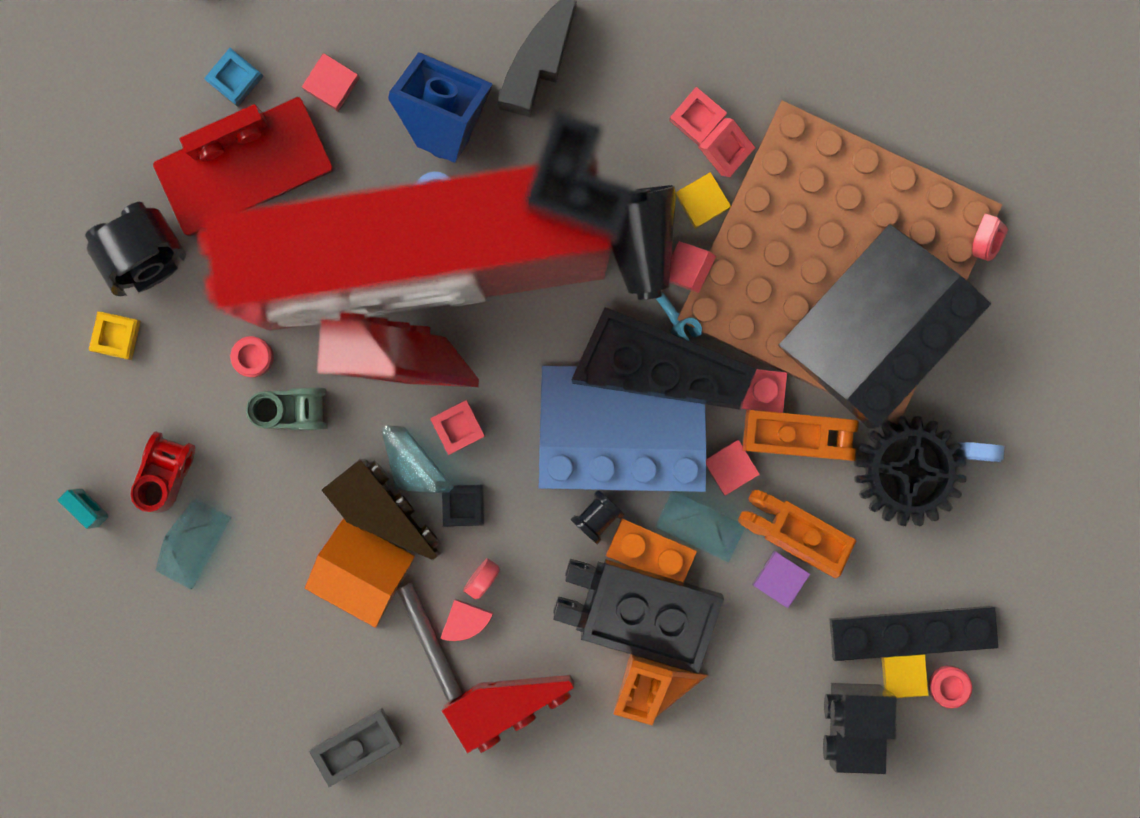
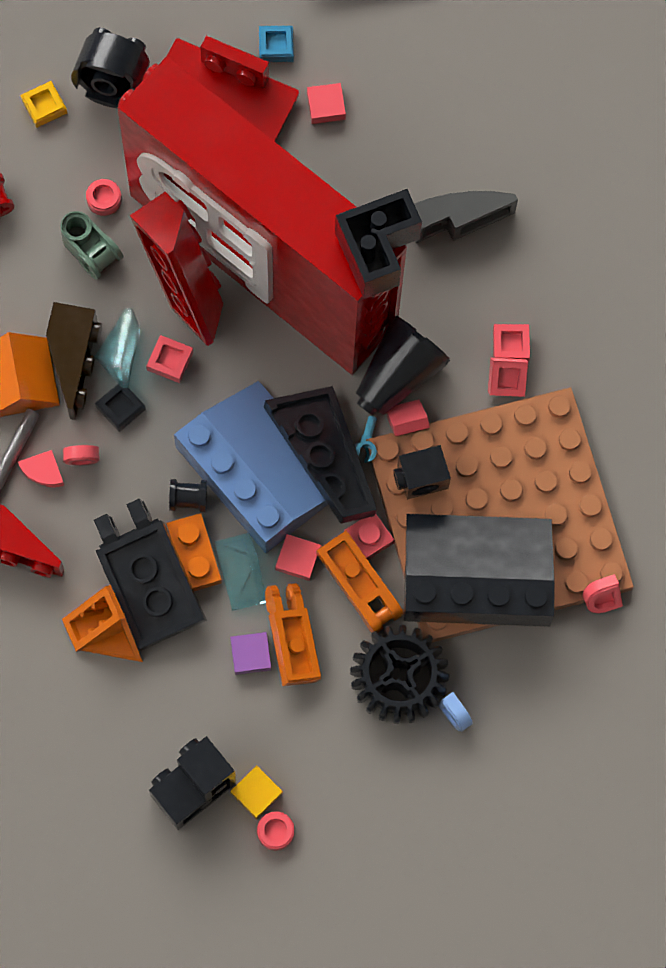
camera: 45 degrees right, 15 degrees down
(439, 105) = (369, 170): blue slope -> none
(702, 200) = (459, 392): yellow tile -> none
(757, 301) = (422, 472): none -> black brick
(913, 633) = (291, 774): black plate -> none

